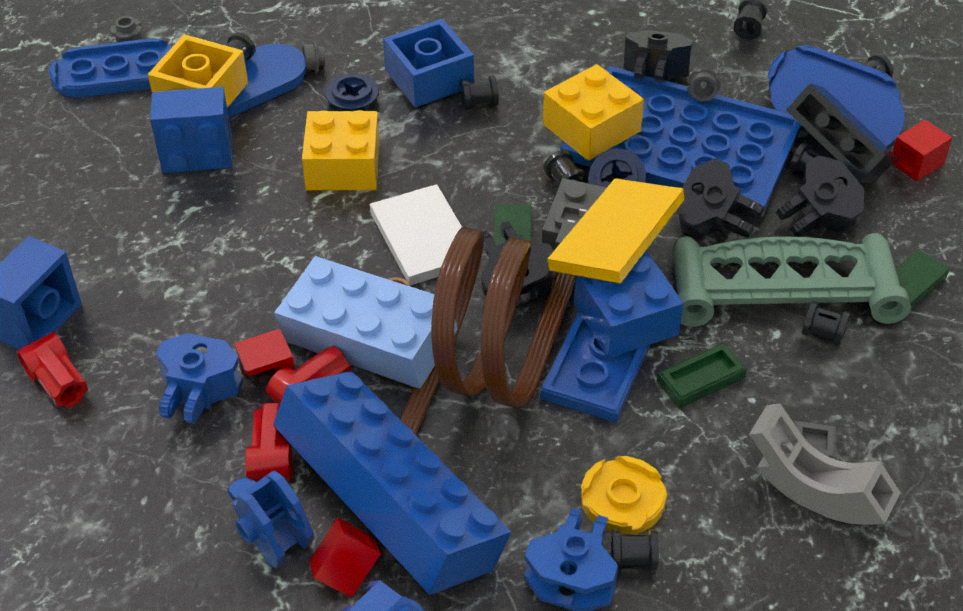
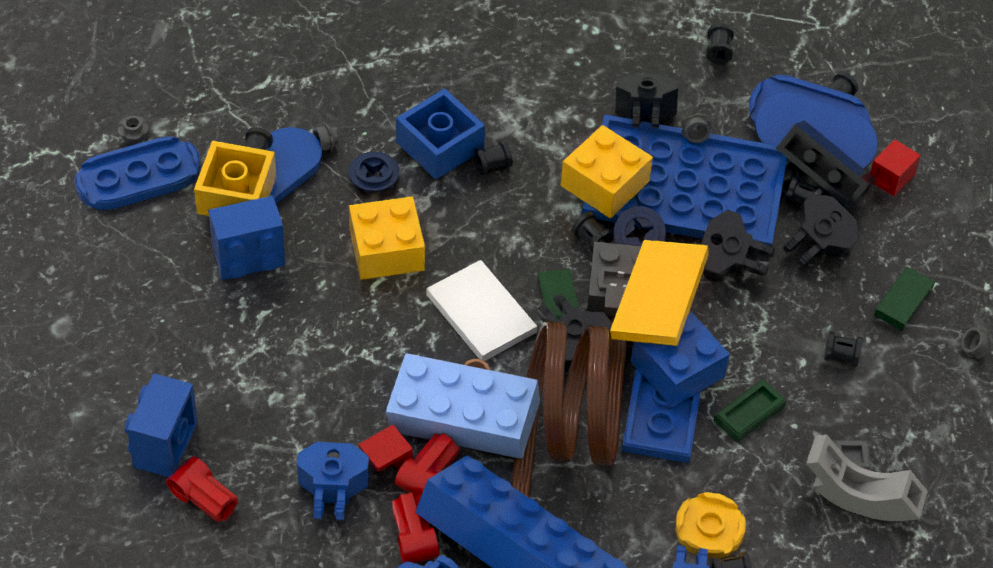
camera: 15 degrees left, 5 degrees up
(870, 281) = (737, 330): sand green piece -> none

